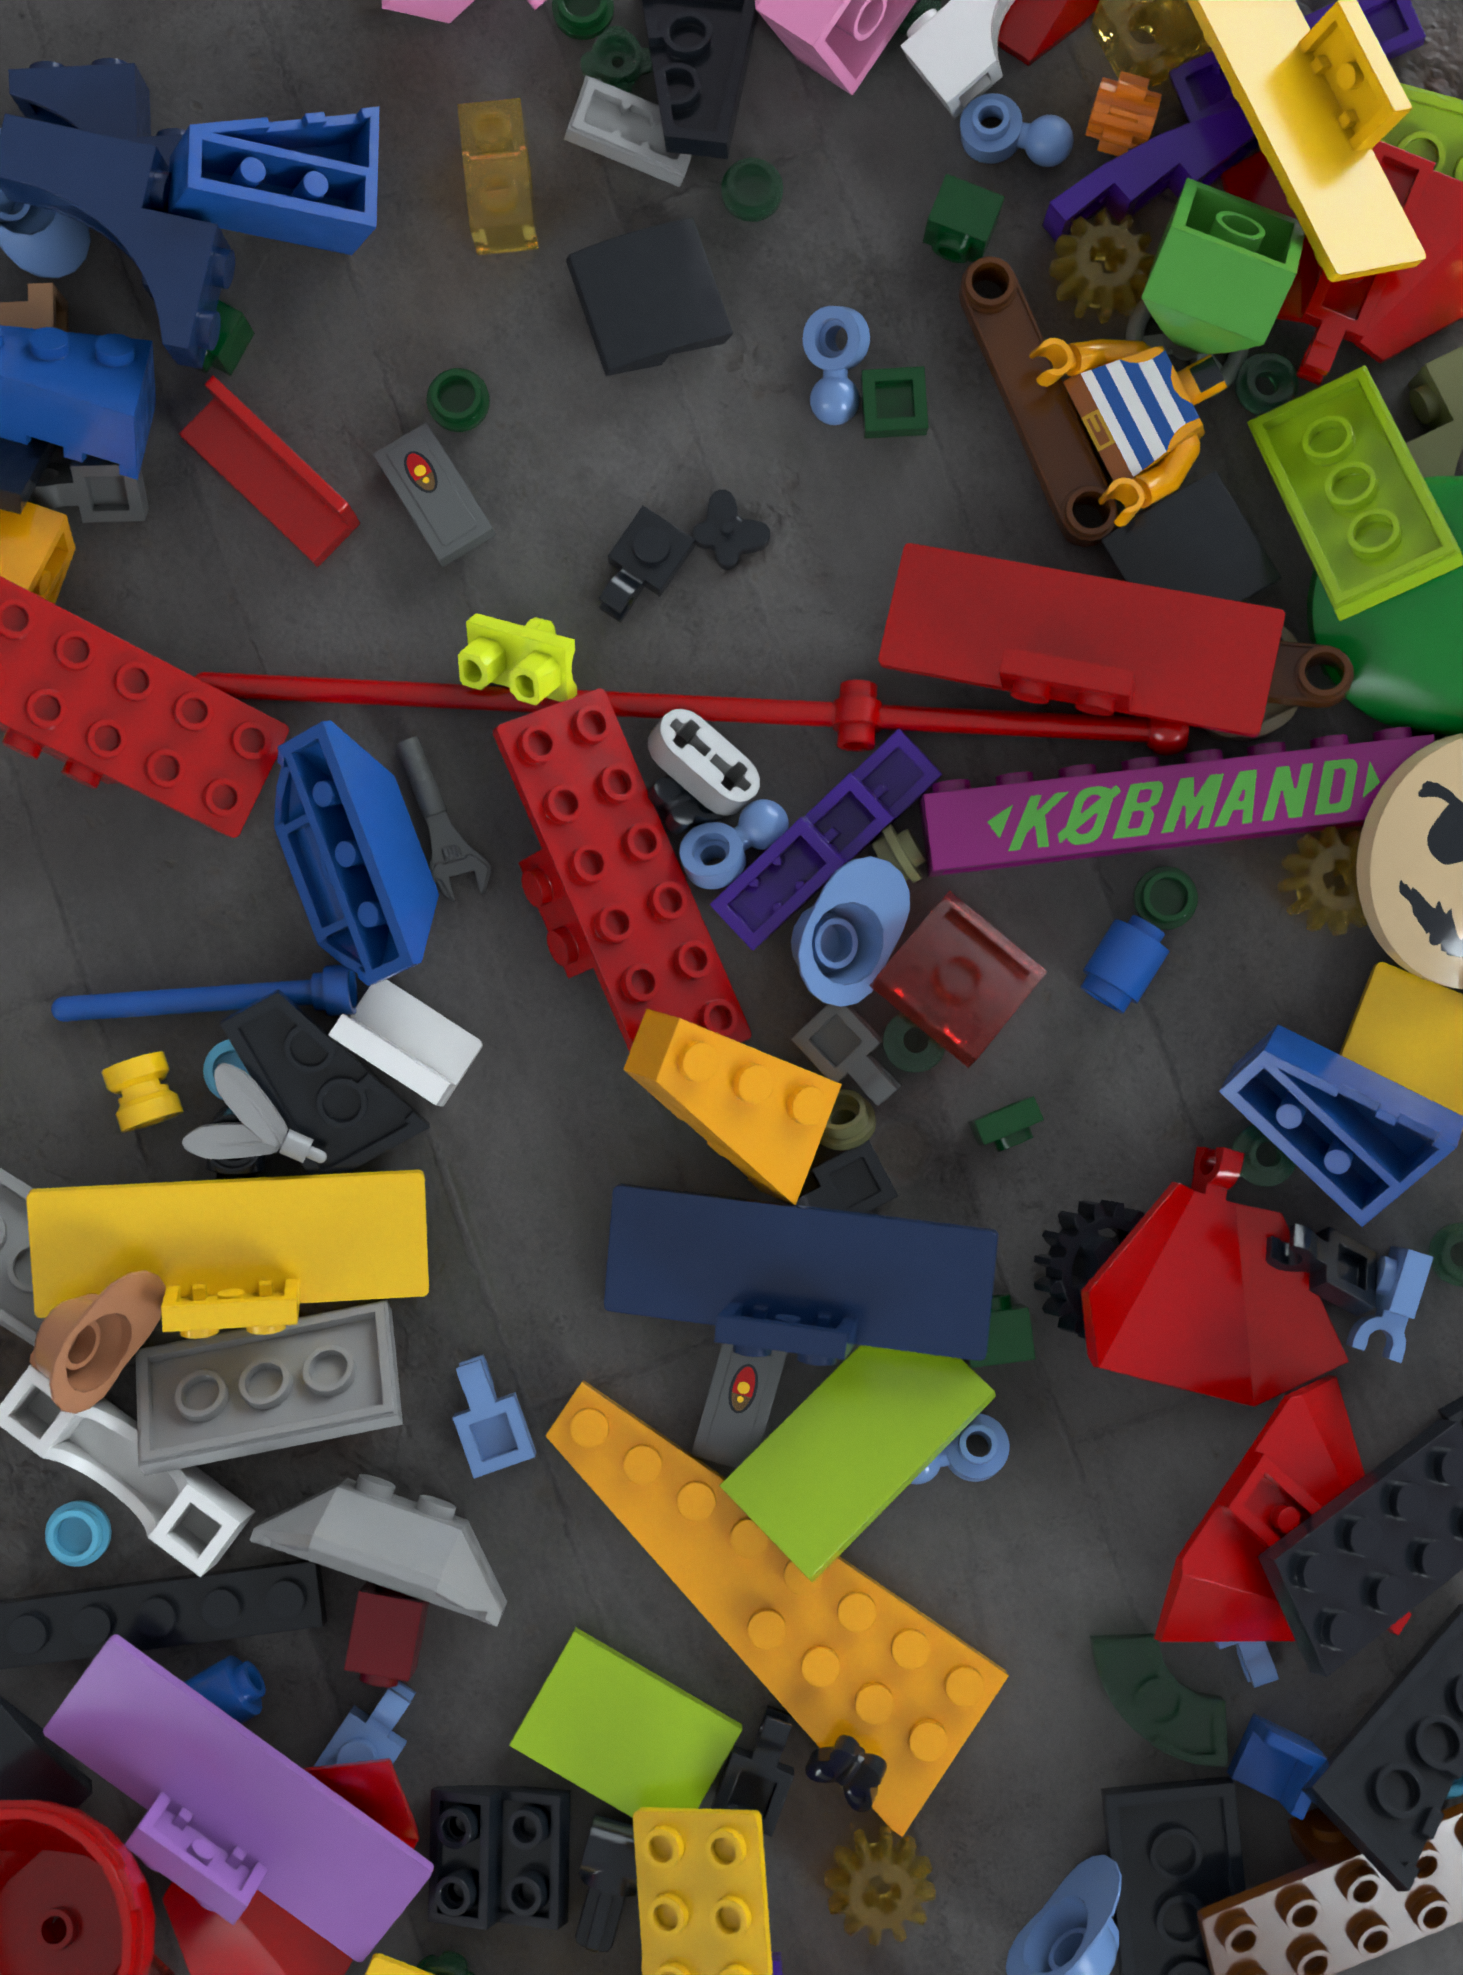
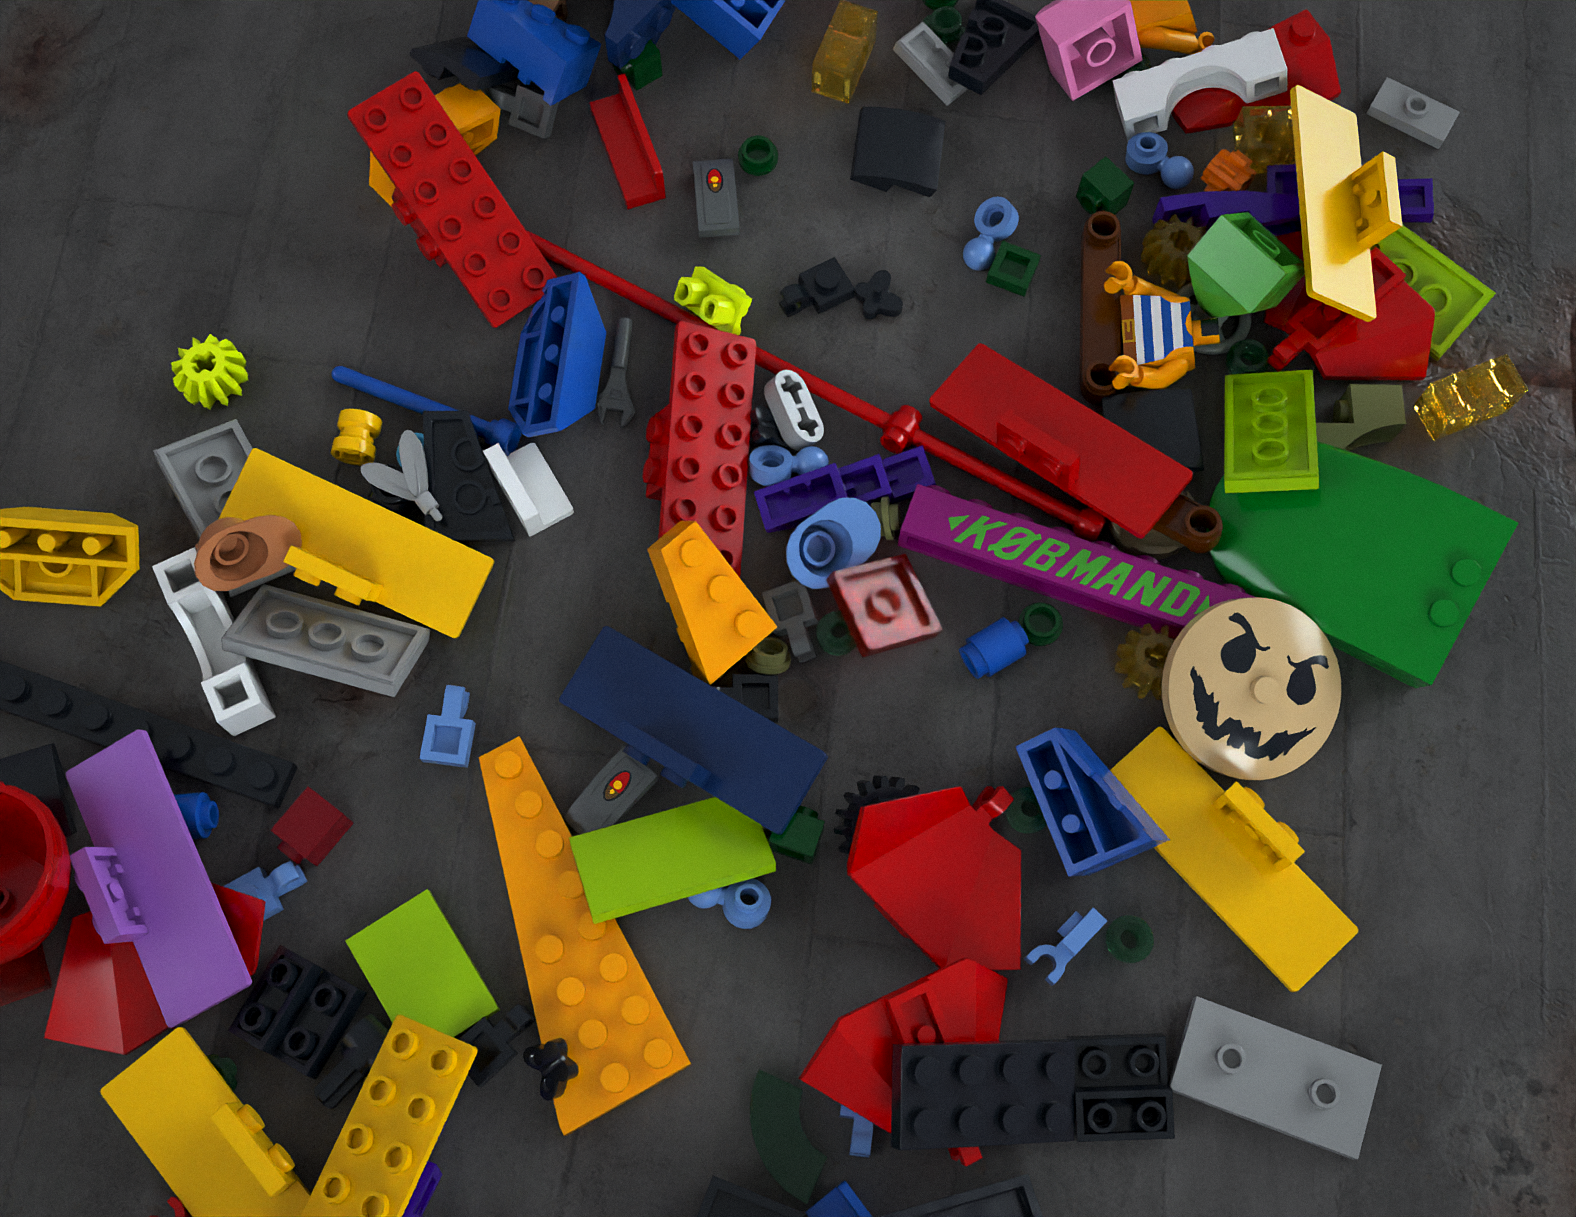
camera: 25 degrees right, 15 degrees down
(78, 1533) = (162, 675): medium azure plate -> none
(391, 1543) = (345, 772): light grey wedge -> none
(752, 189) = (988, 123): clear green plate -> none
(863, 1903) = (542, 1146): clear yellow gear -> none
(1008, 1124) = (870, 707): dark green plate -> none
(1336, 1265) = (1040, 897): black plate -> none

